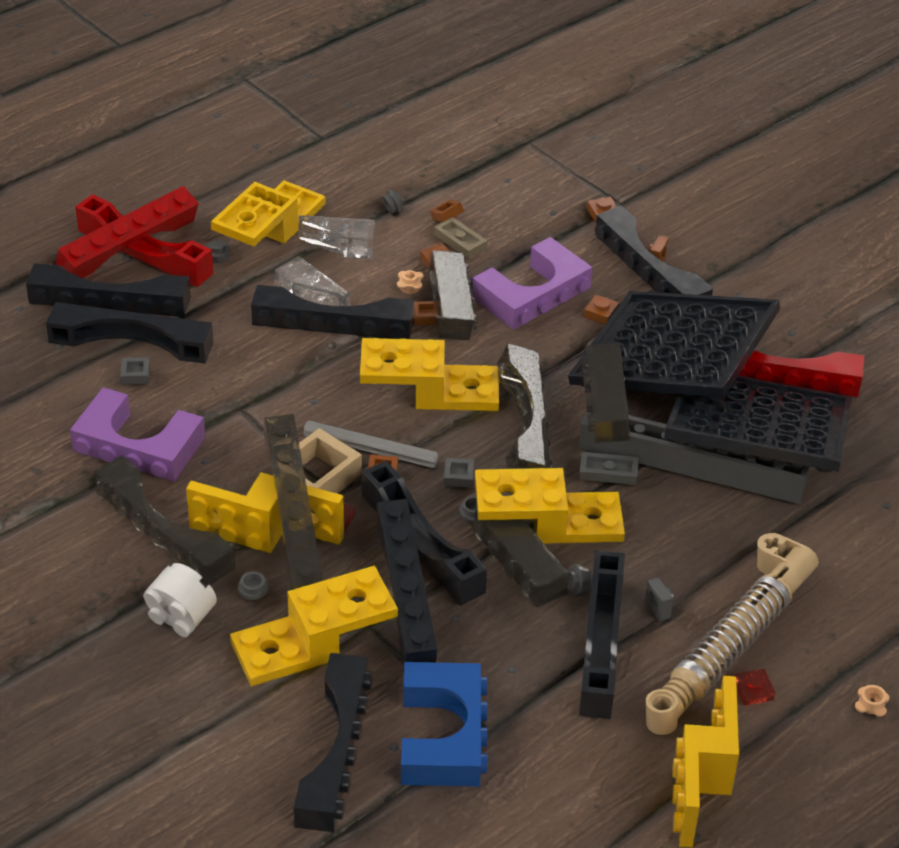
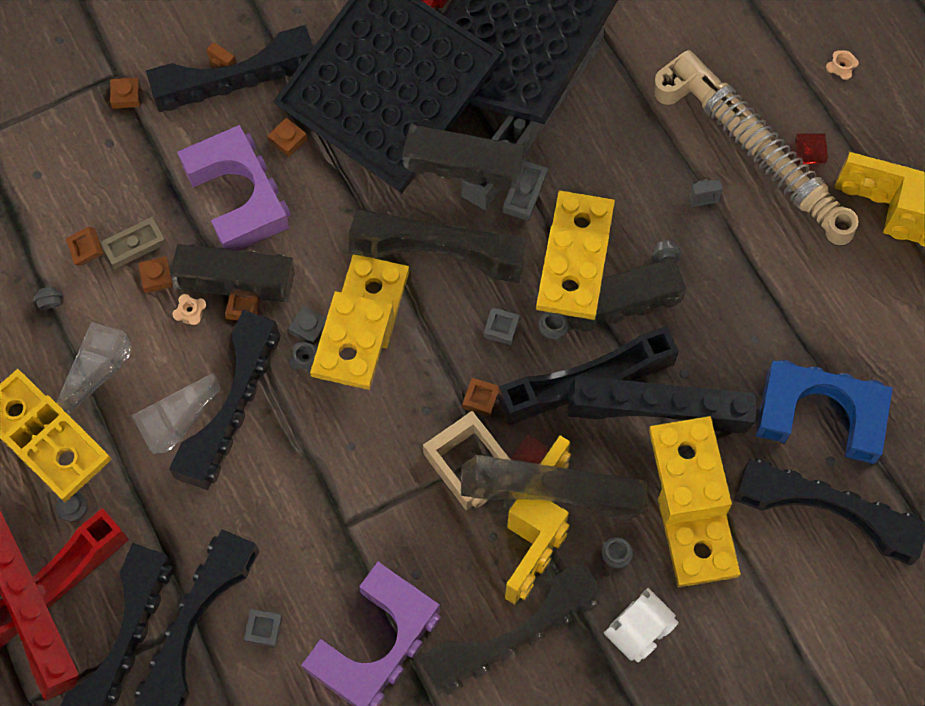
camera: 75 degrees left, 25 degrees up
(376, 445) = (436, 403): light grey axle -> none
(602, 635) = (793, 266): black arch -> none

